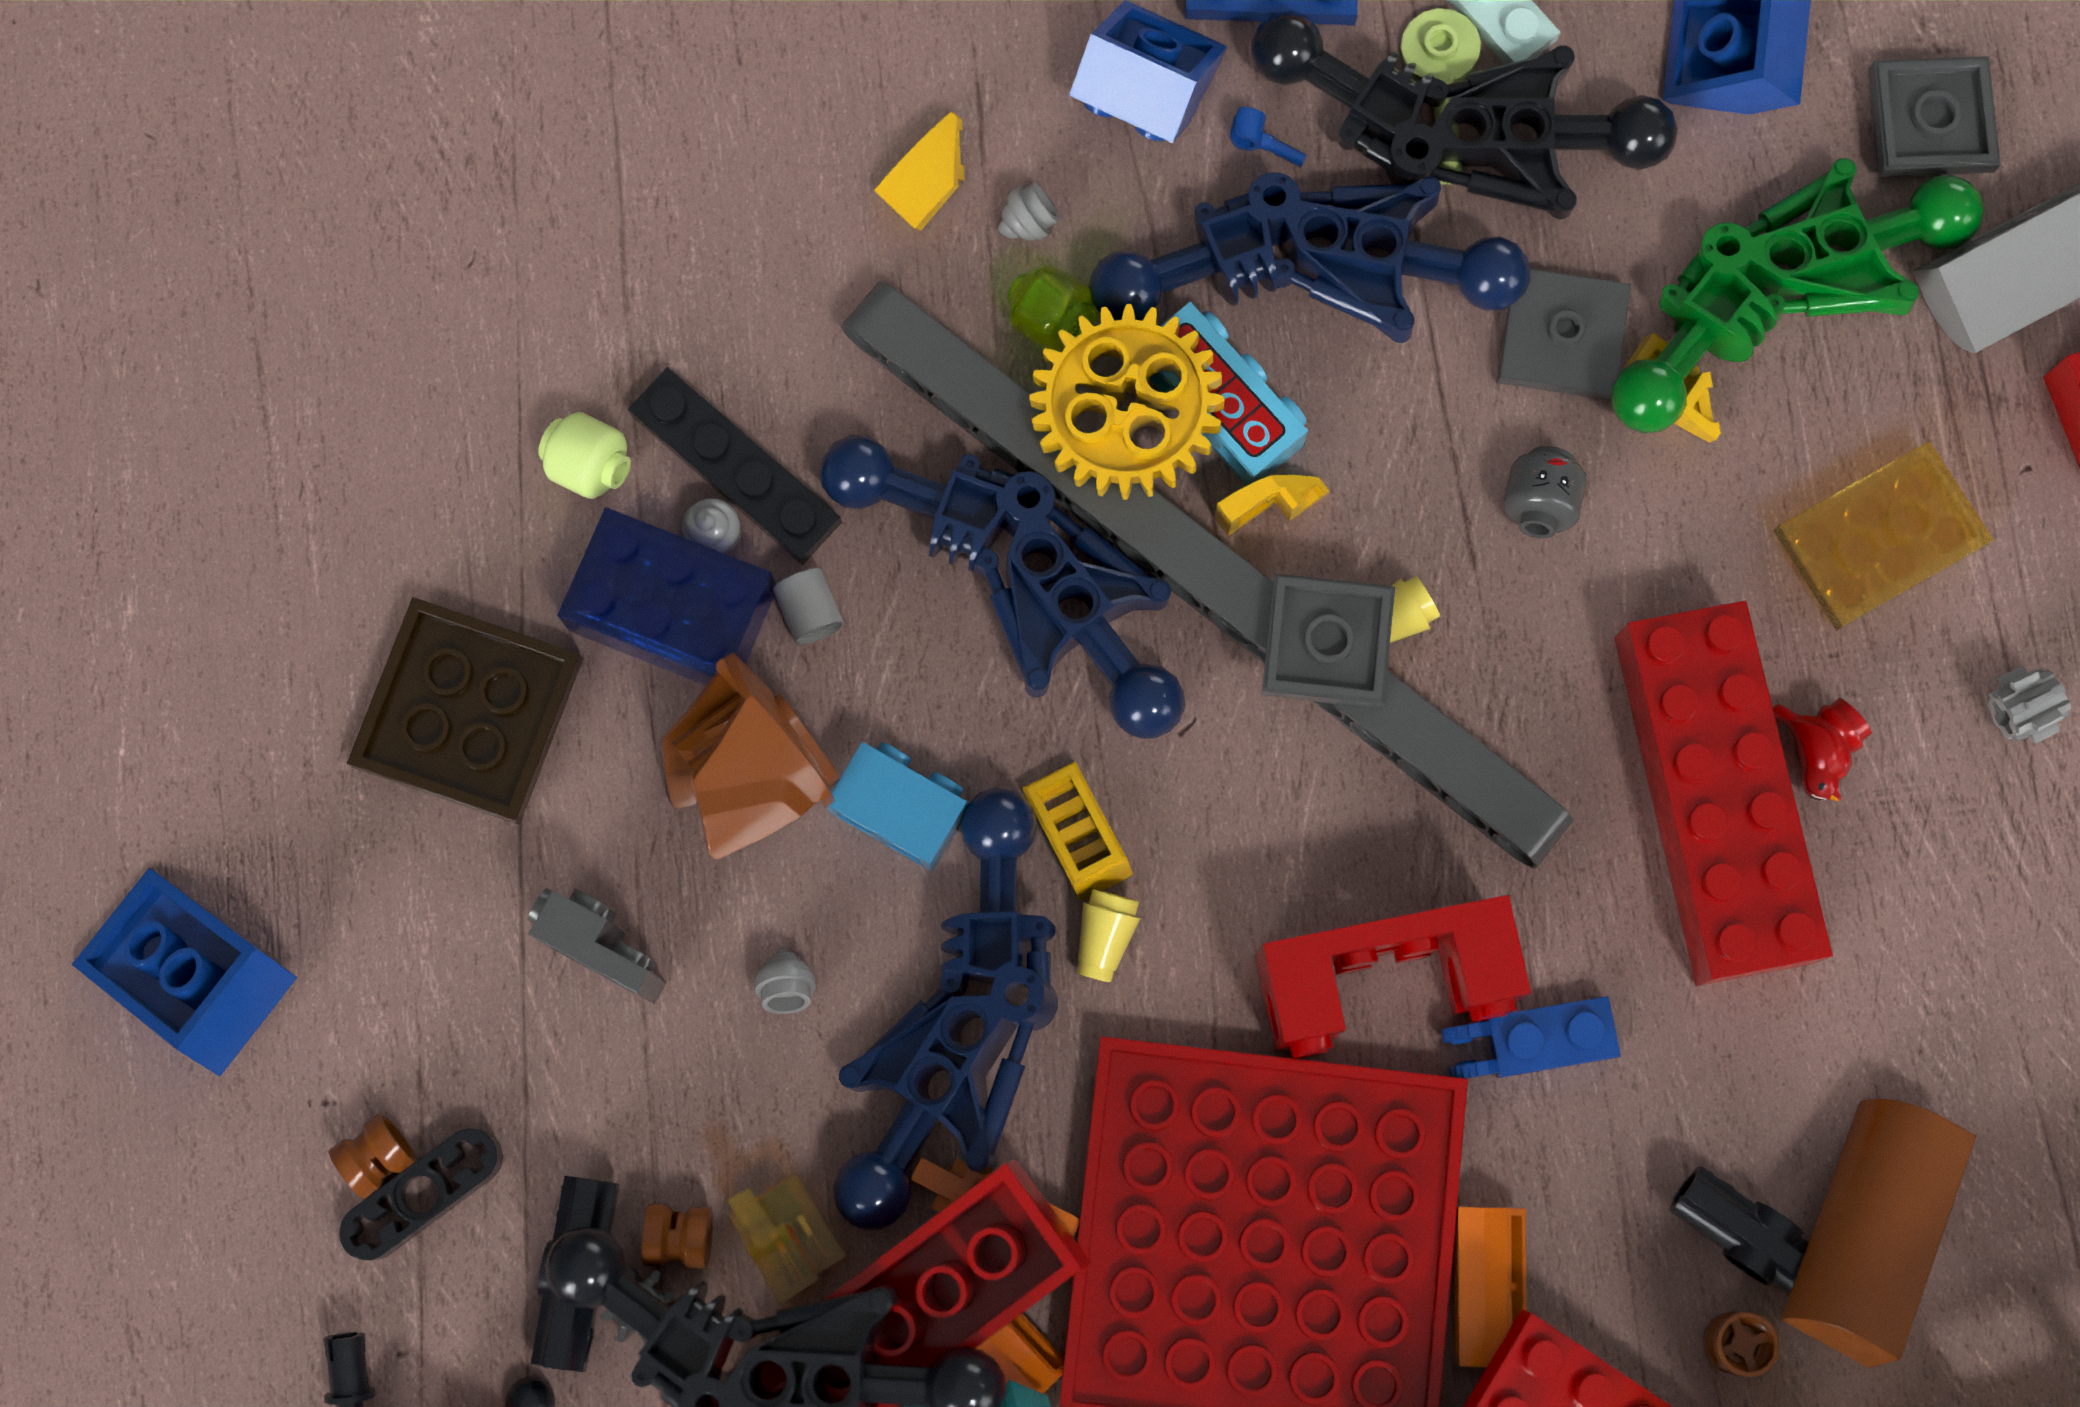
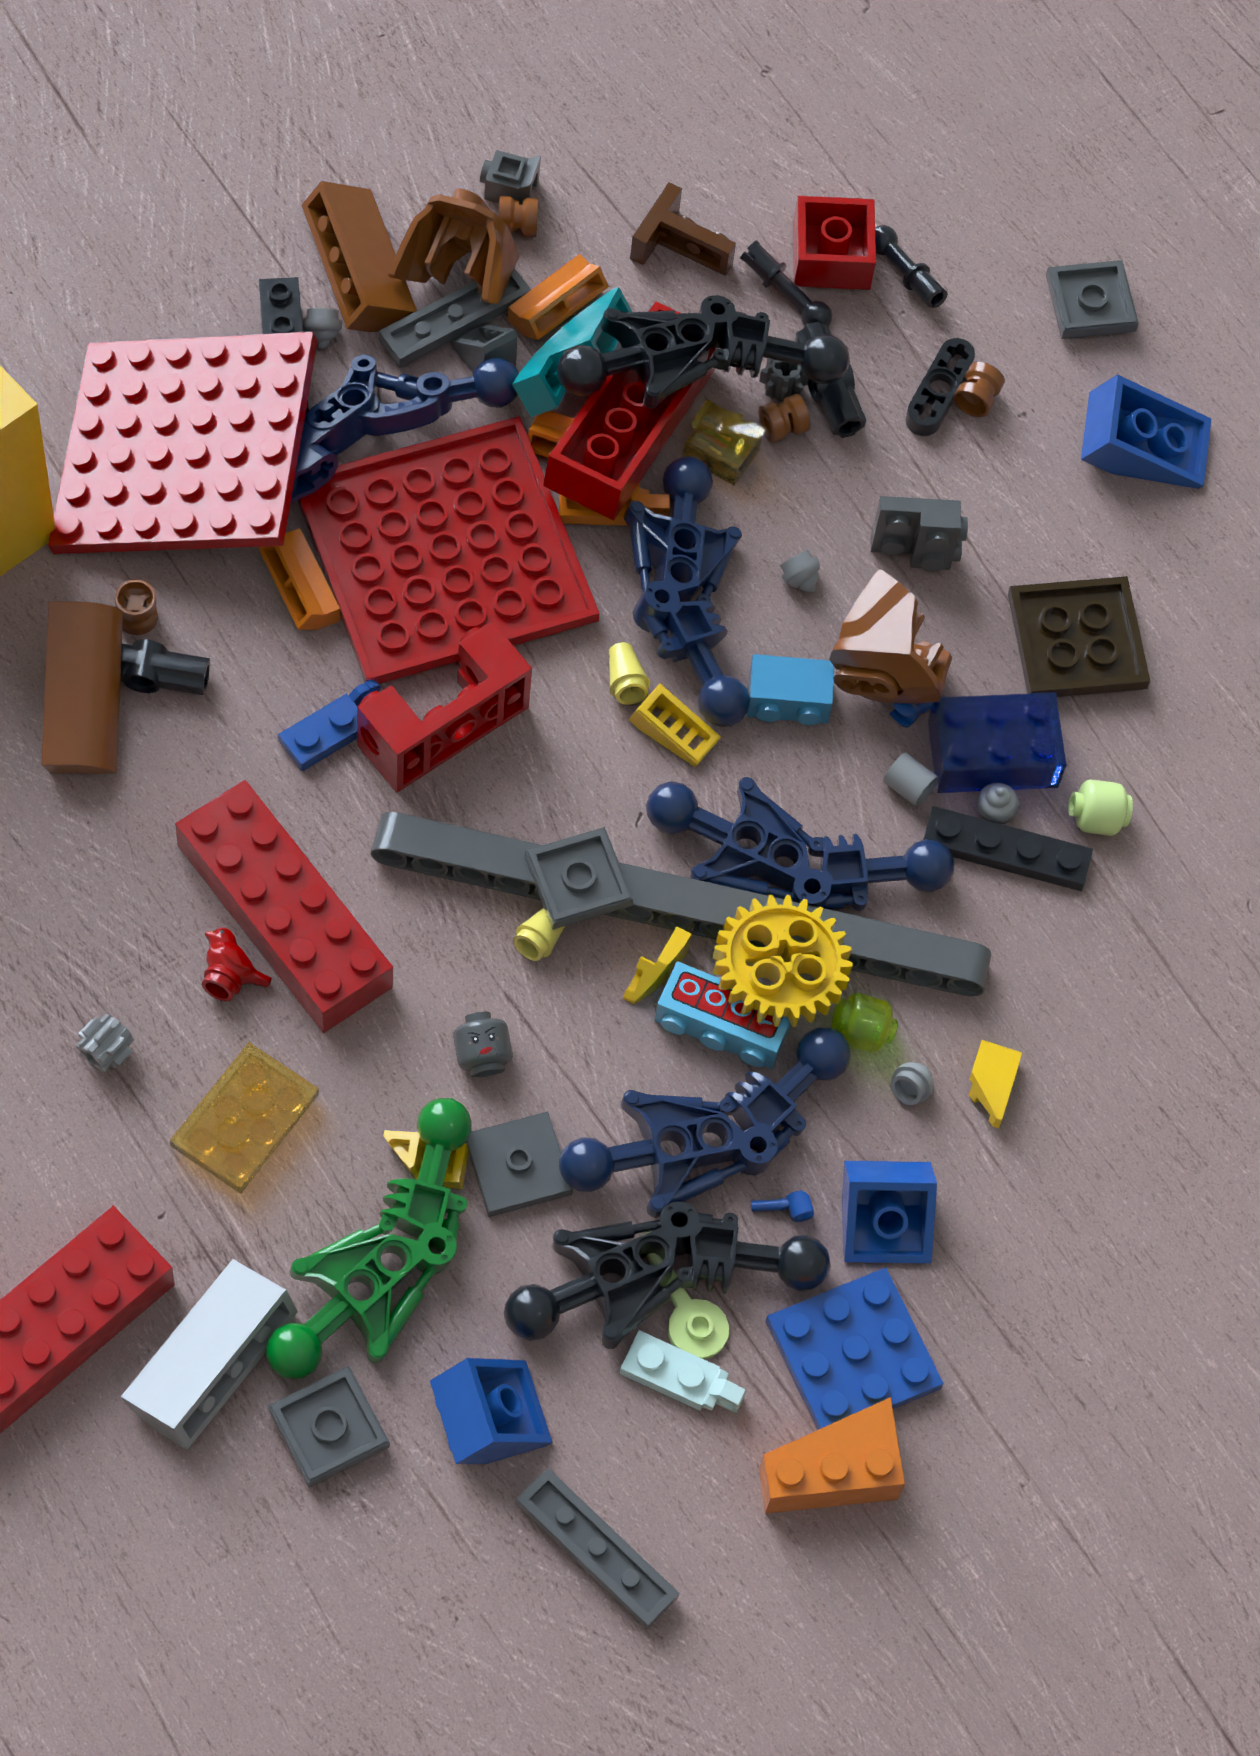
camera: 145 degrees right, 15 degrees down
(117, 1237) = (1092, 299): none -> dark grey plate

